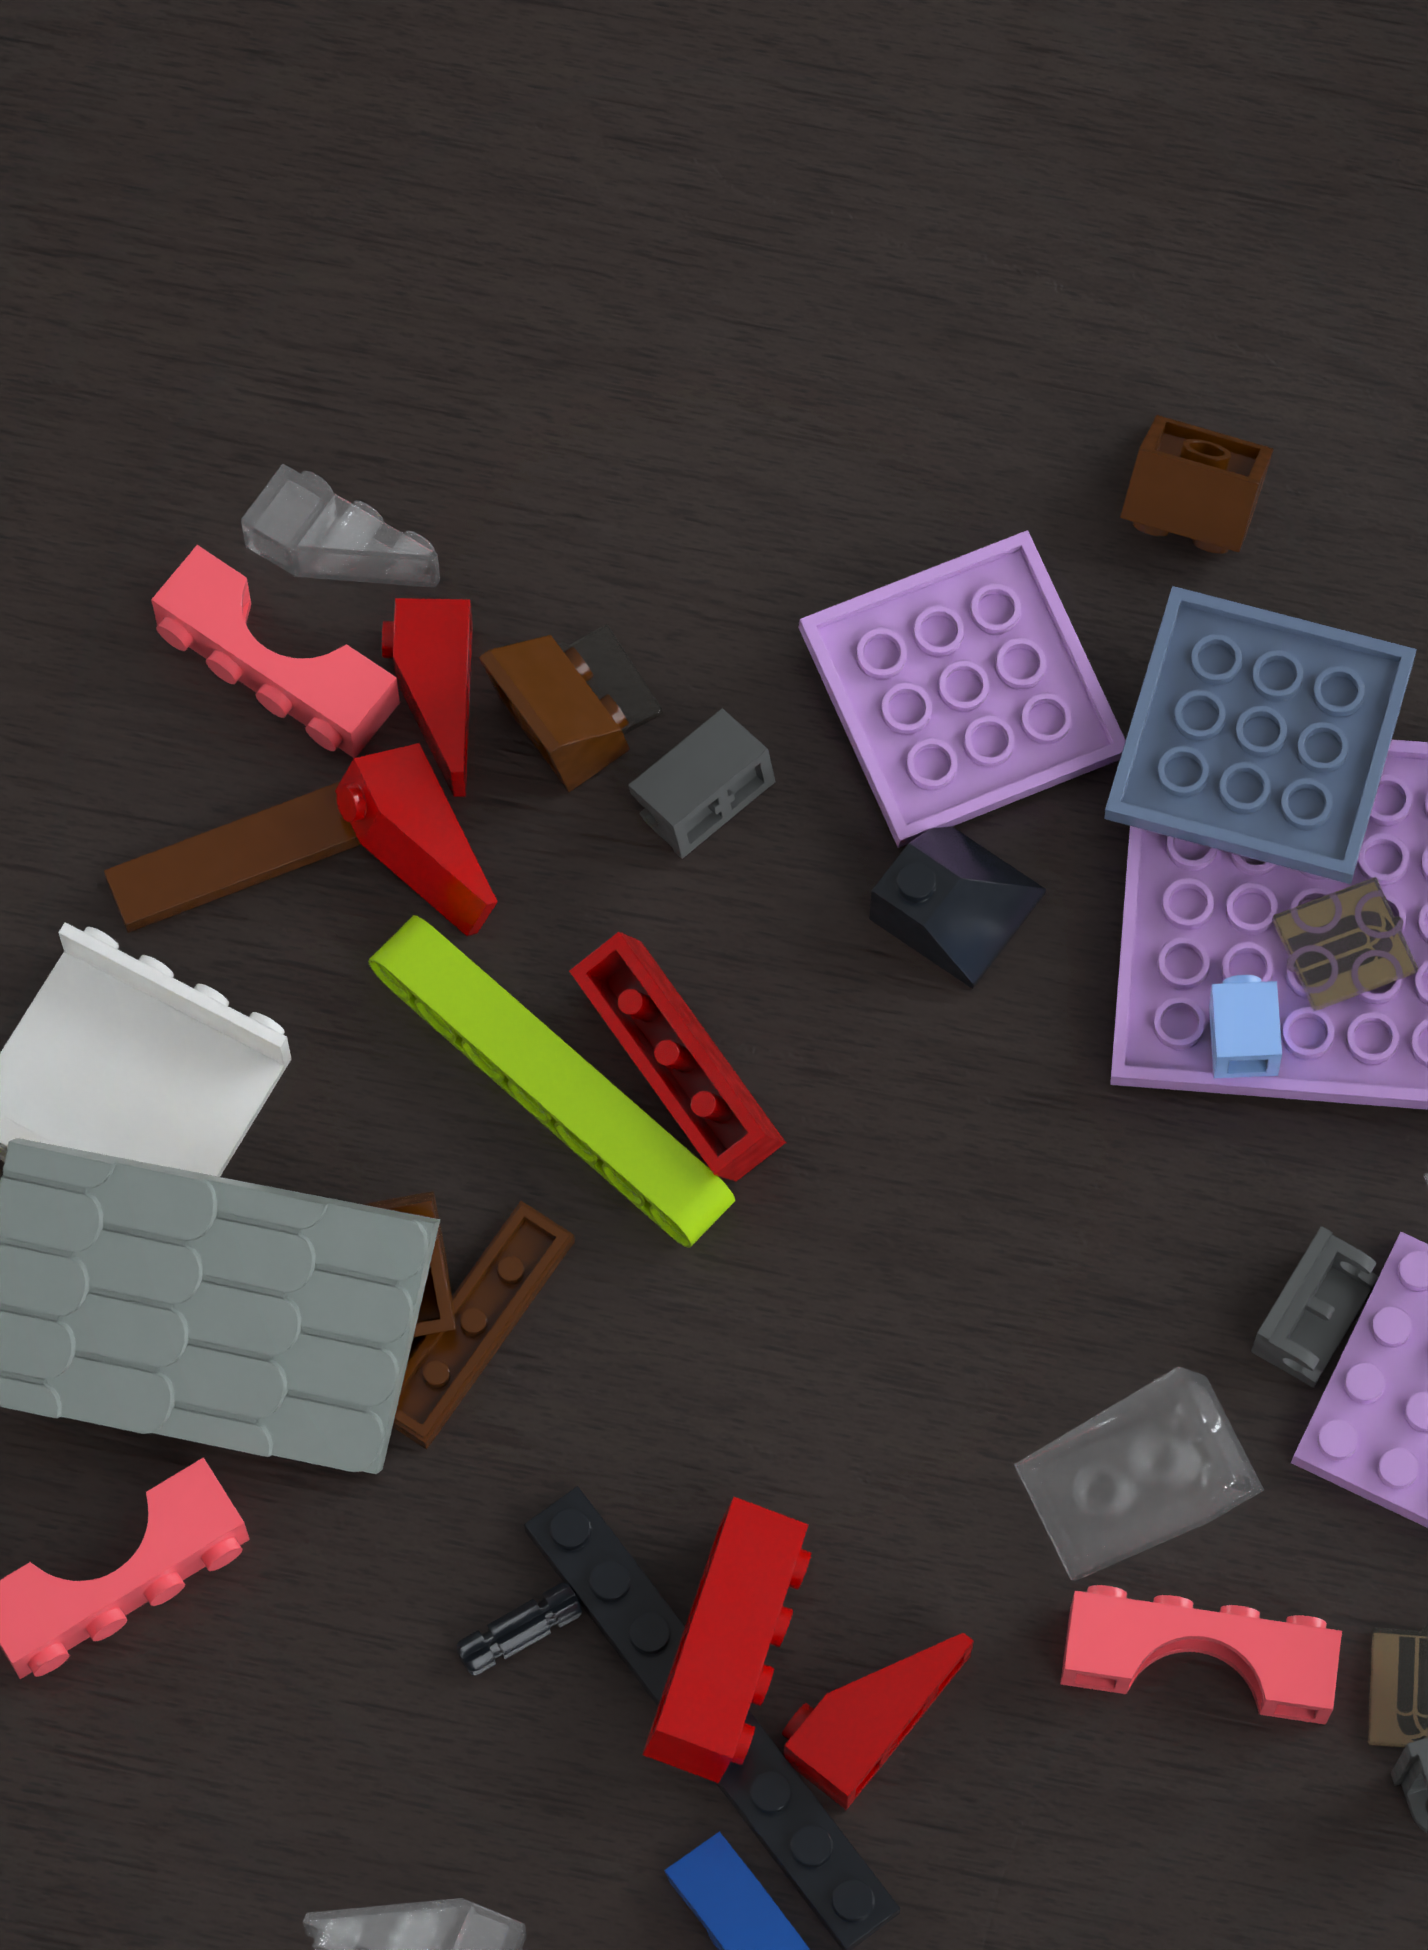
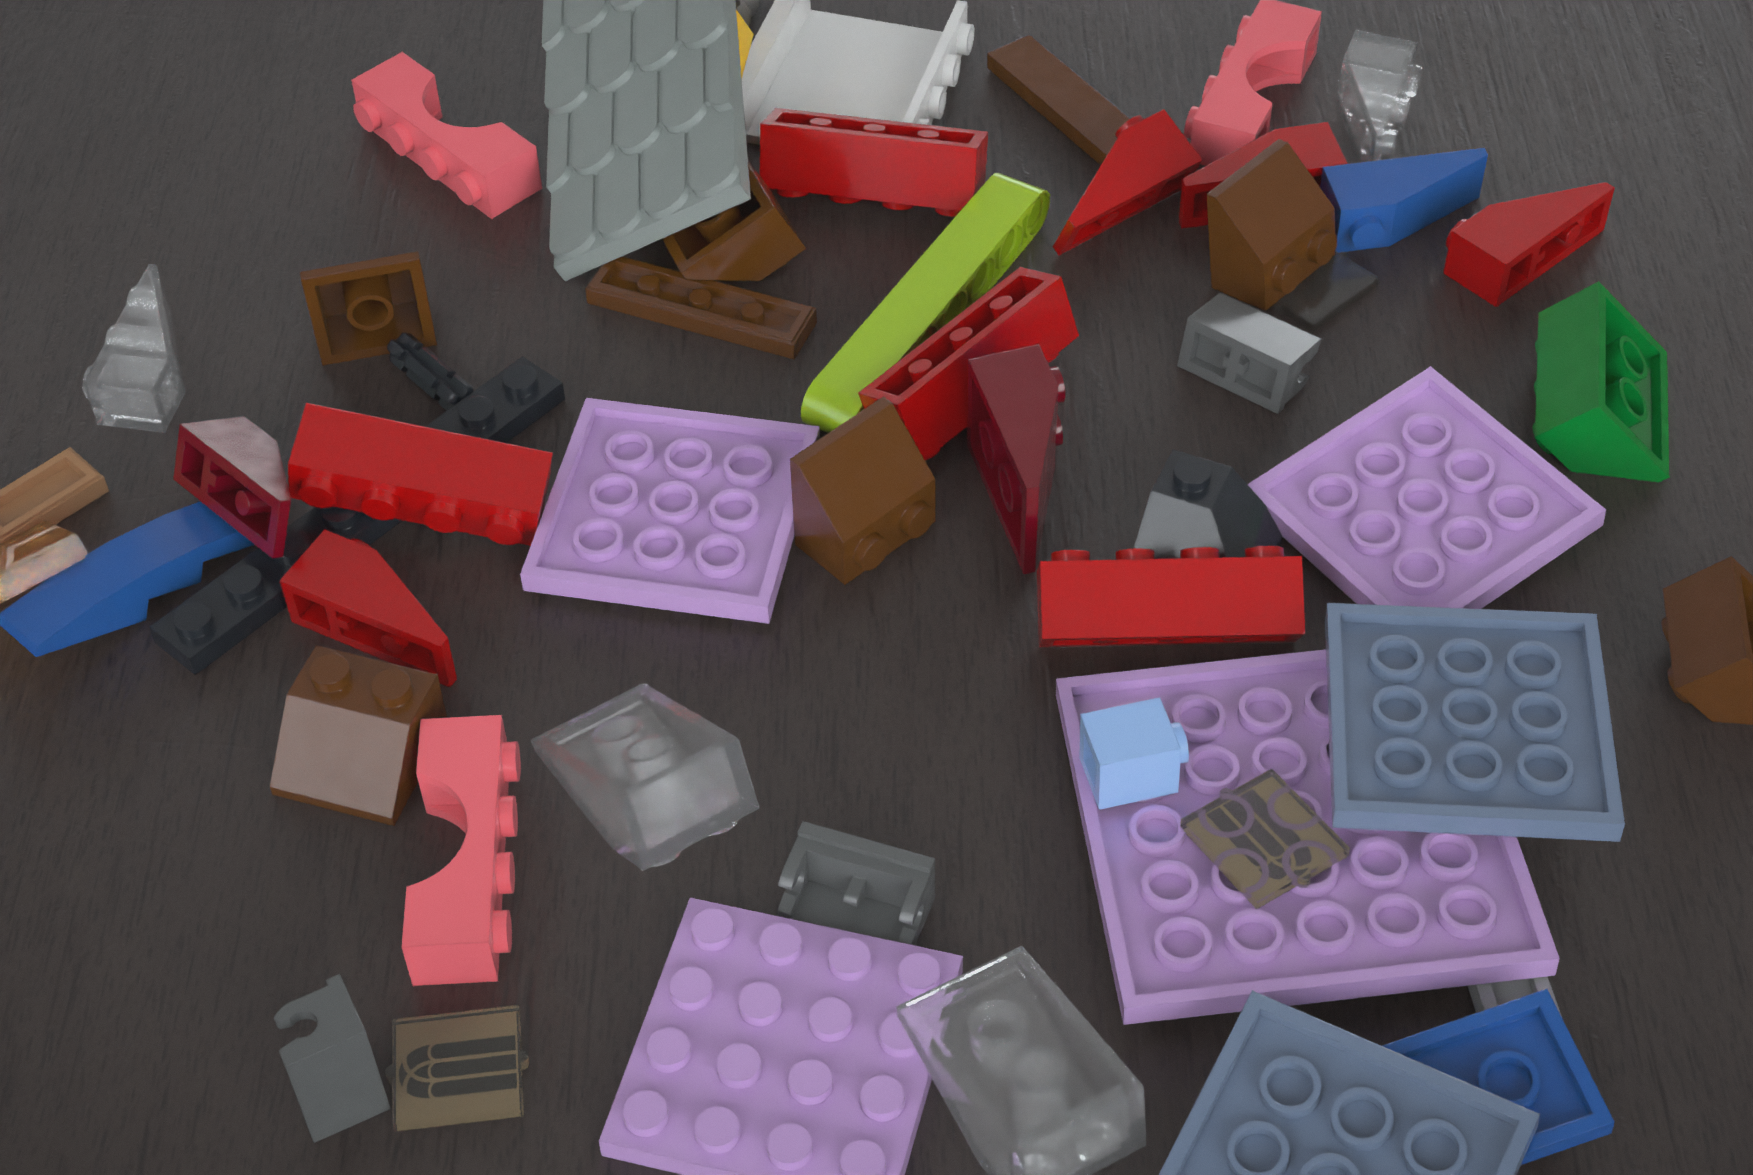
camera: 80 degrees right, 20 degrees down
(319, 1078) = (872, 160): none -> red brick
(412, 1677) = (366, 305): none -> reddish brown slope
(509, 575) = (1399, 196): none -> blue slope
(613, 486) = (1523, 238): none -> red slope
(687, 1826) = (238, 476): none -> dark red slope
(793, 1394) = (670, 511): none -> lavender plate
(826, 1034) = (1015, 440): none -> dark red slope
(839, 476) = (1601, 389): none -> green slope
(848, 1202) = (861, 492): none -> reddish brown slope
(1045, 951) = (1170, 599): none -> red brick
(1046, 1743) = (353, 734): none -> slope

